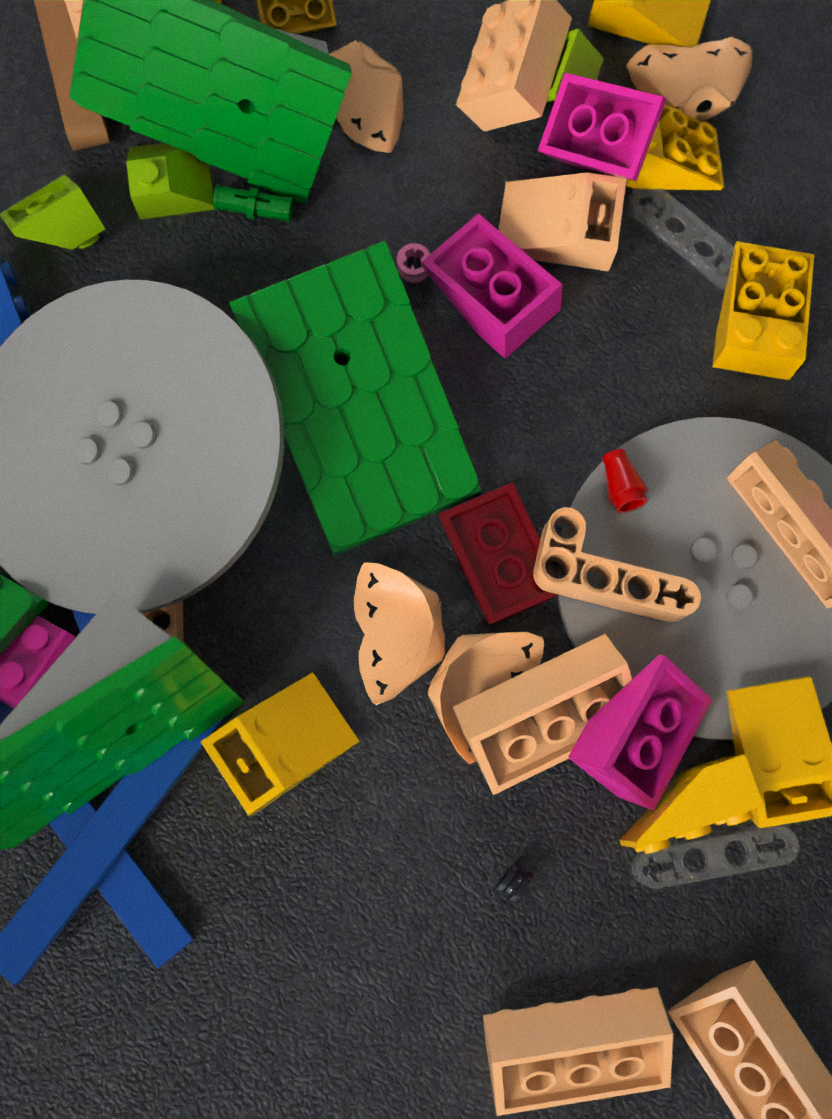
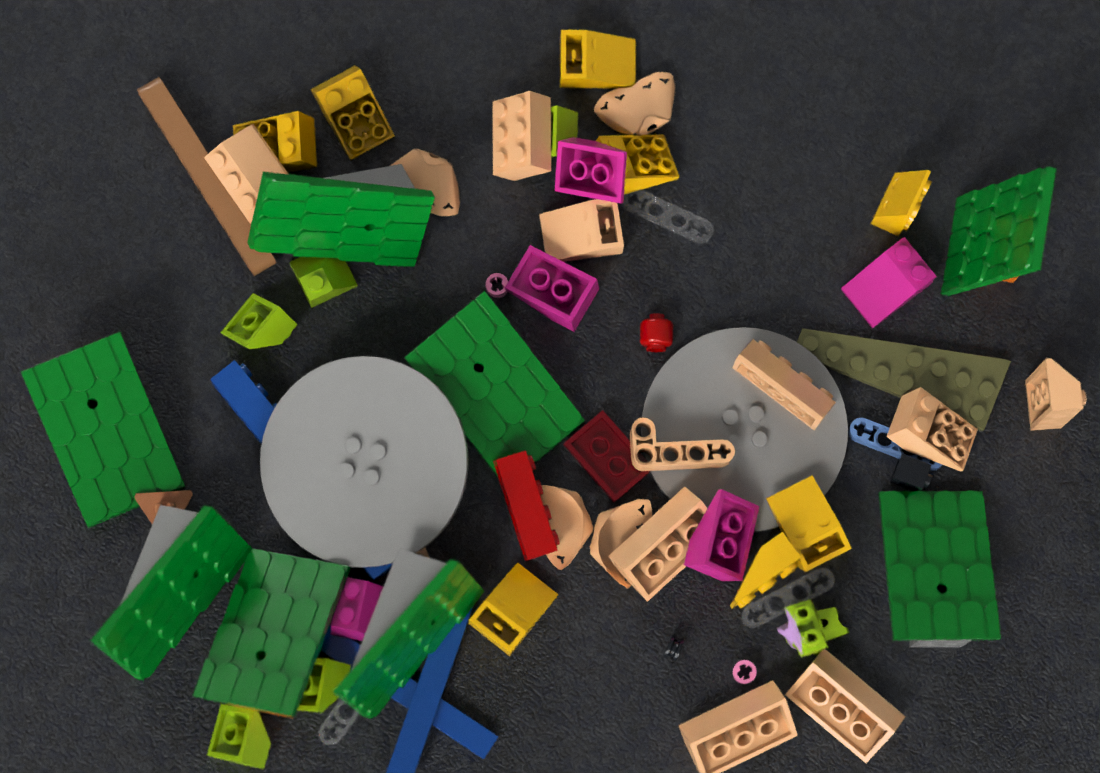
camera: 20 degrees left, 0 degrees up
(253, 203) = (383, 277): green pin -> none
(351, 589) = (526, 506): none -> red brick
(624, 483) = (670, 391): red cone -> none
(625, 962) = (752, 674): none -> bright pink bush
(626, 395) = (656, 333): none -> red head
(743, 927) = (805, 629): none -> lime hips
(765, 312) = (726, 253): yellow slope -> none

